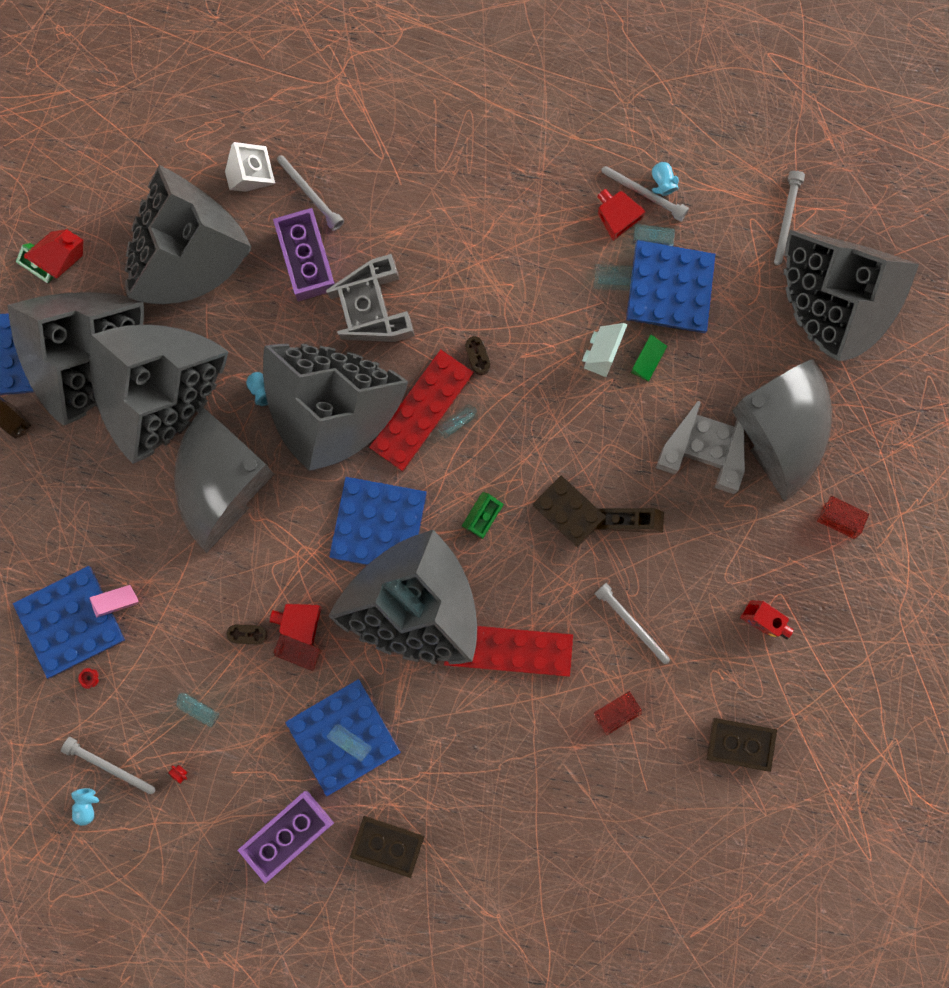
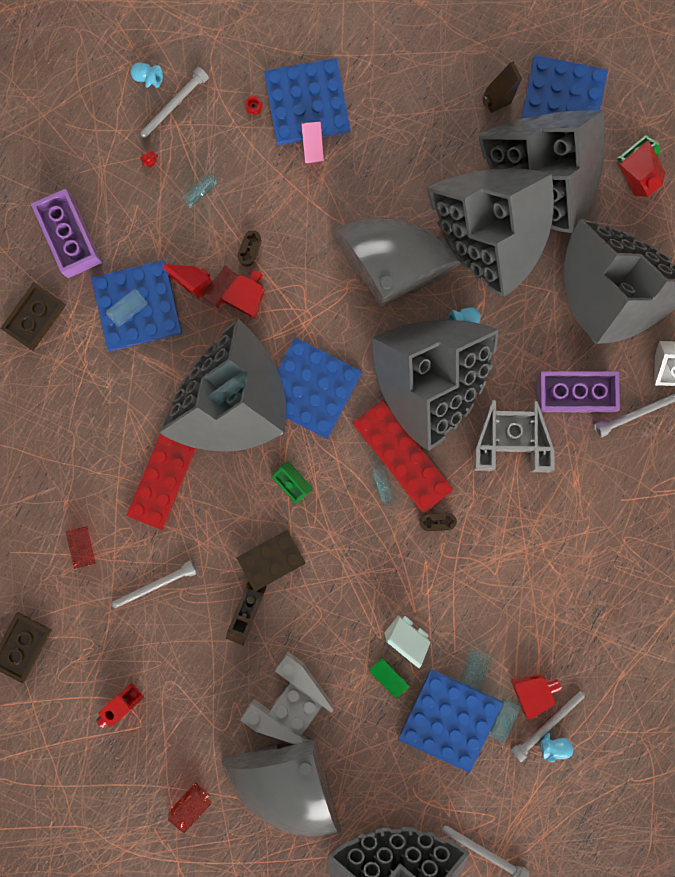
camera: 110 degrees right, 5 degrees up
(298, 686) = (190, 278): none -> red slope

